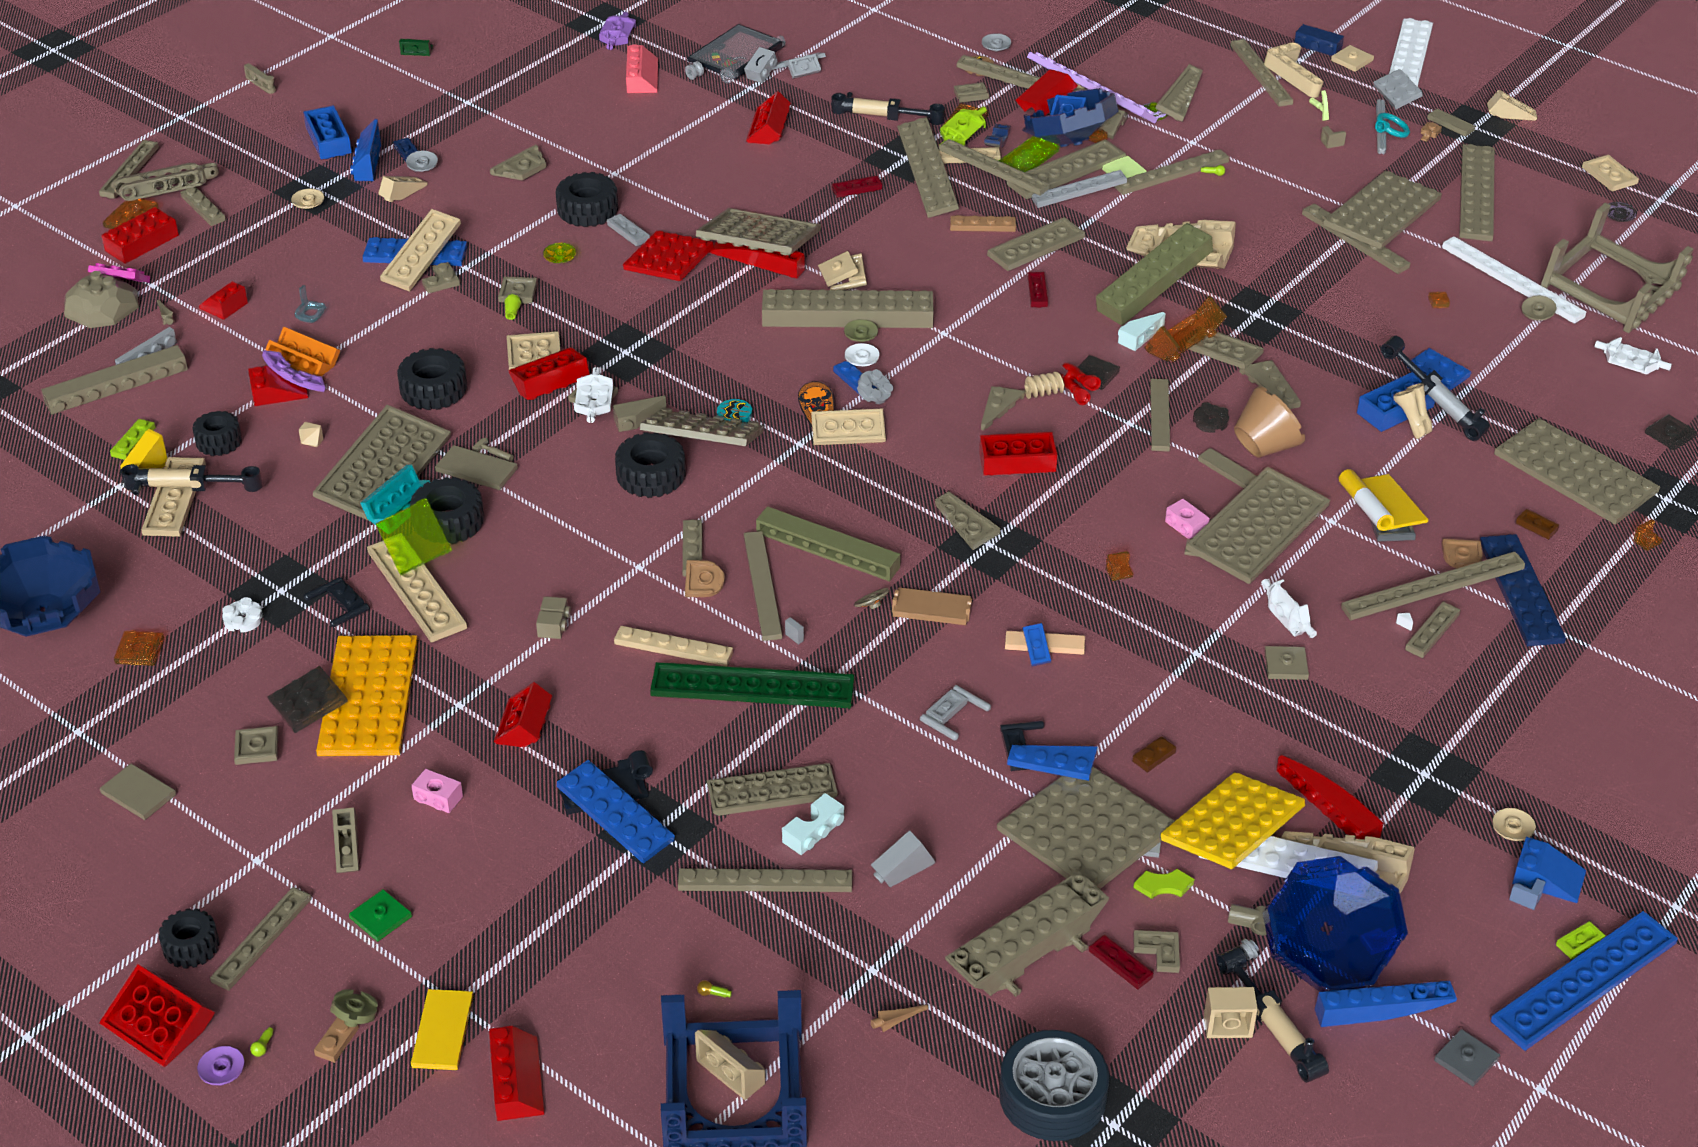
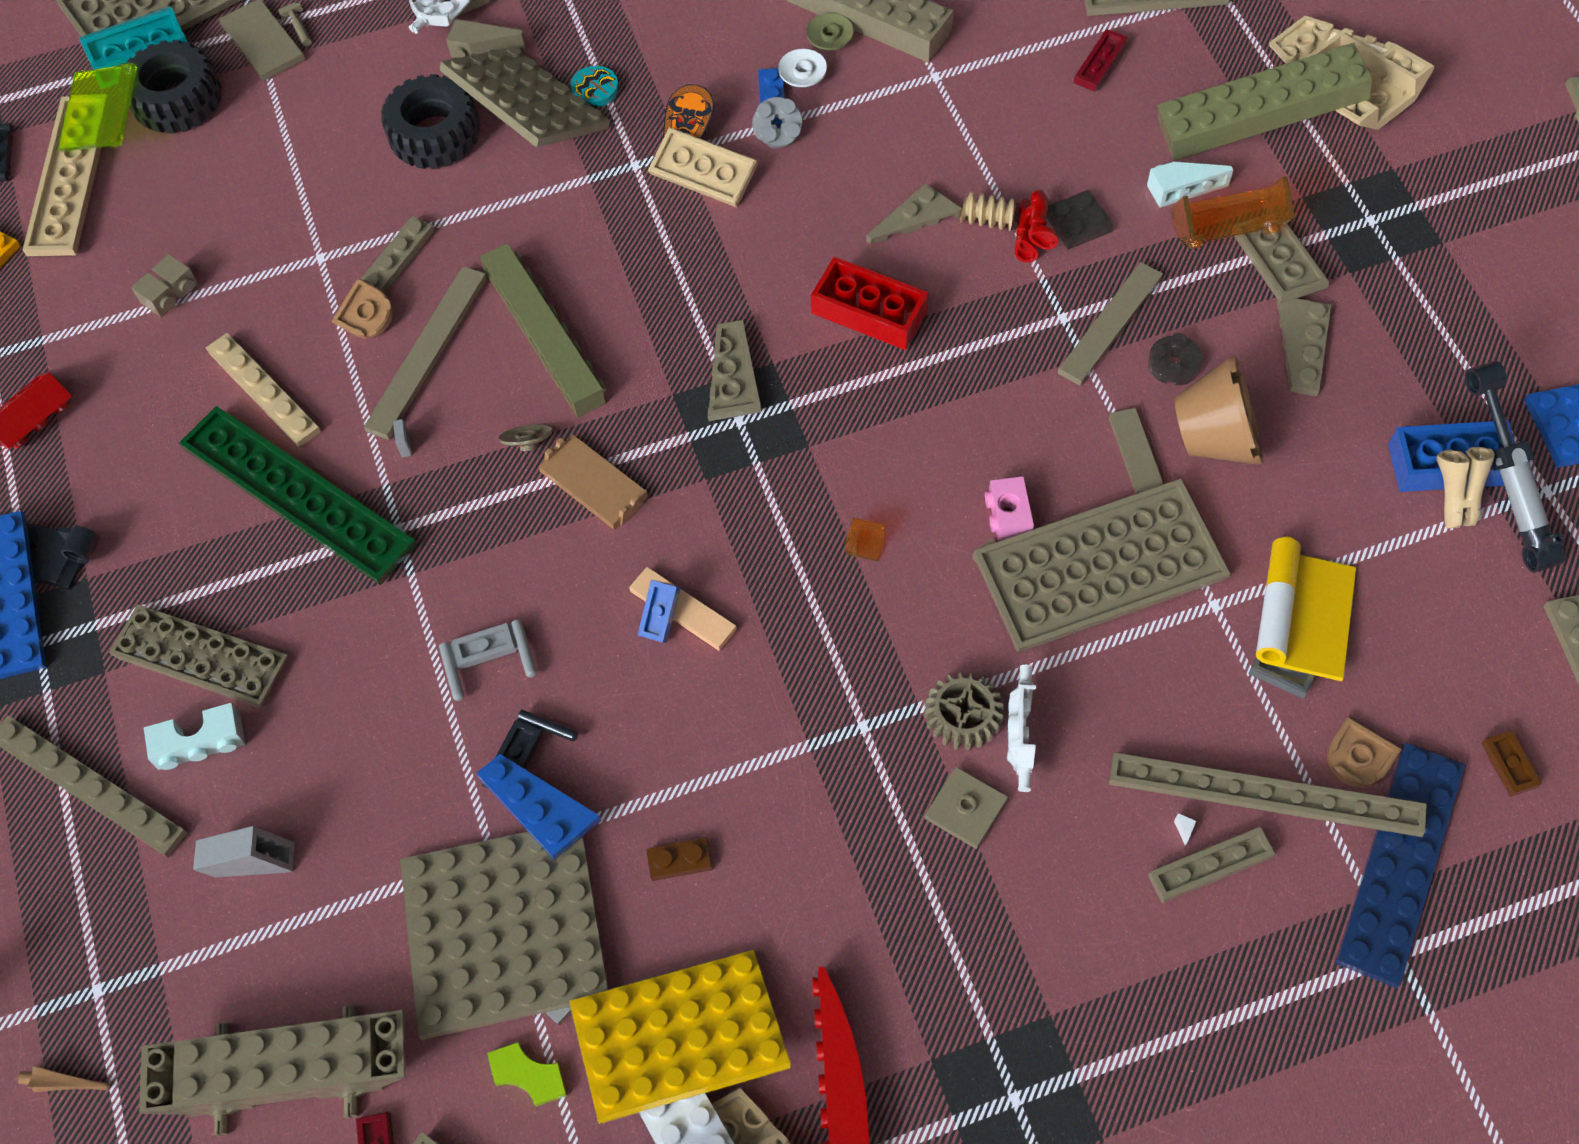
camera: 35 degrees right, 20 degrees up
(1247, 619) = (968, 687): none -> dark tan gear

